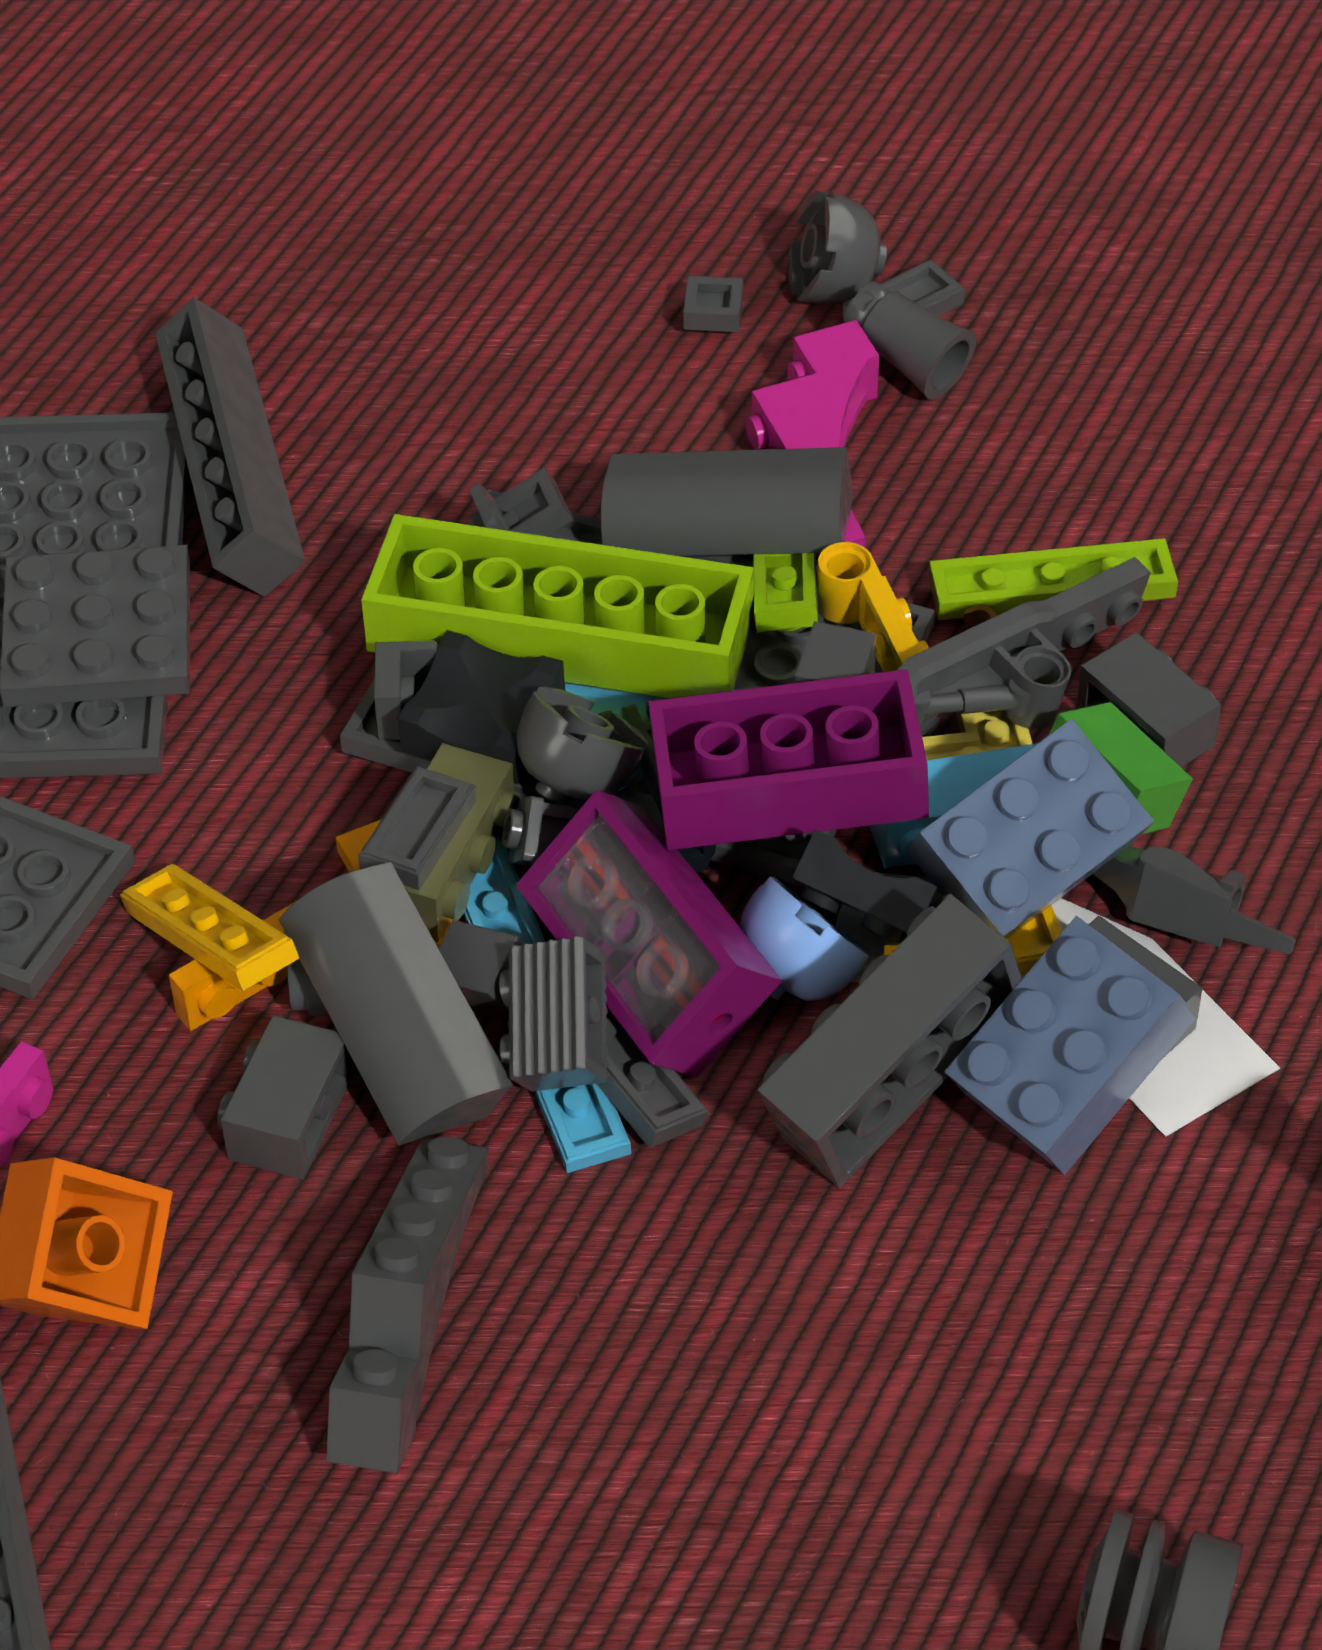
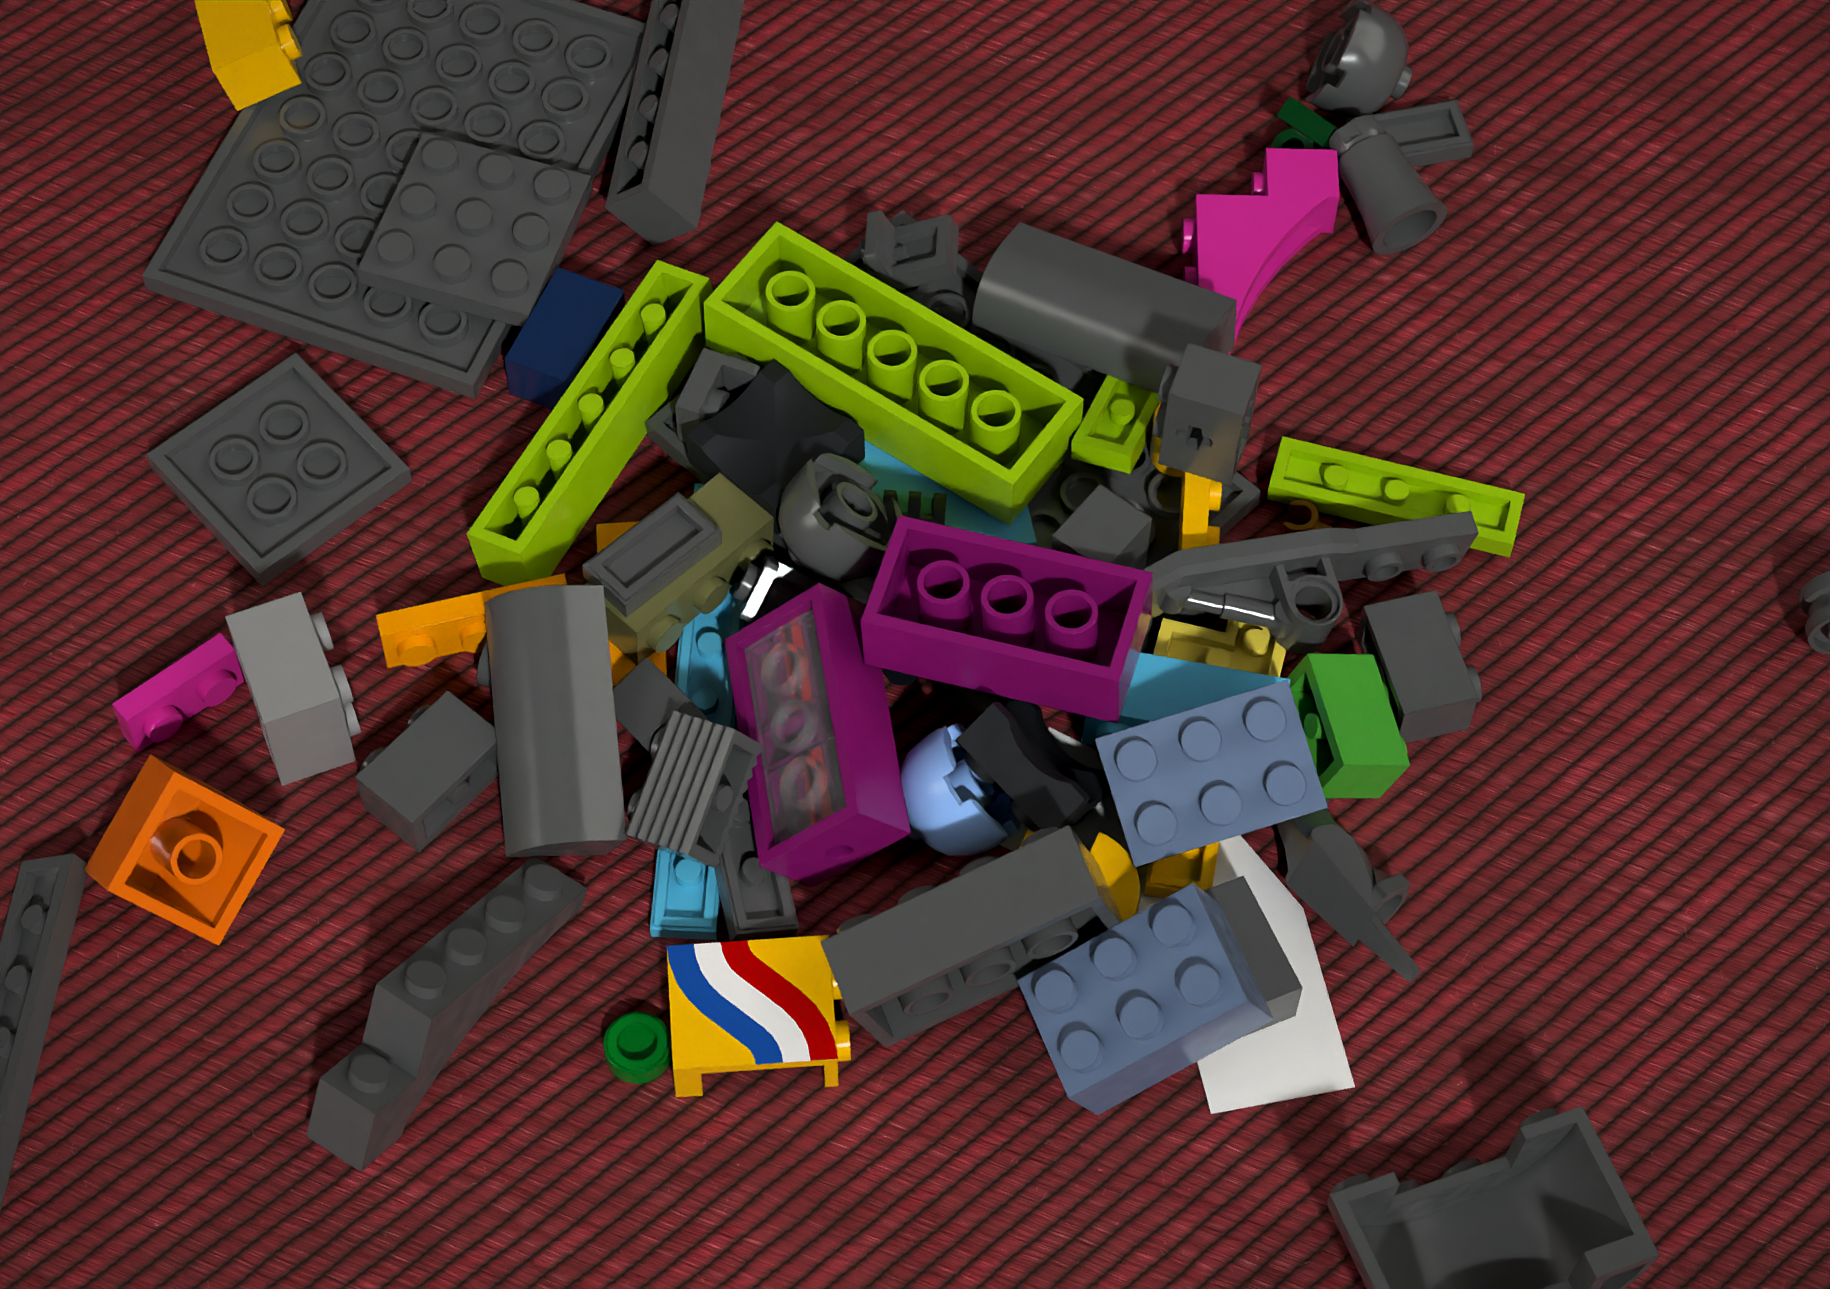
camera: 20 degrees right, 10 degrees up
(124, 1060) = (296, 695): none -> light grey brick
(209, 927) = (431, 580): yellow tile -> none
(230, 694) = (560, 336): none -> dark blue brick
(297, 751) = (593, 429): none -> lime brick
(607, 1270) = (637, 1047): none -> green tile
(704, 1191) = (753, 1009): none -> panel
(713, 304) = (1217, 77): dark grey plate -> none
(814, 313) = (1305, 127): none -> dark green tile
(879, 535) = (1206, 412): none -> dark grey brick

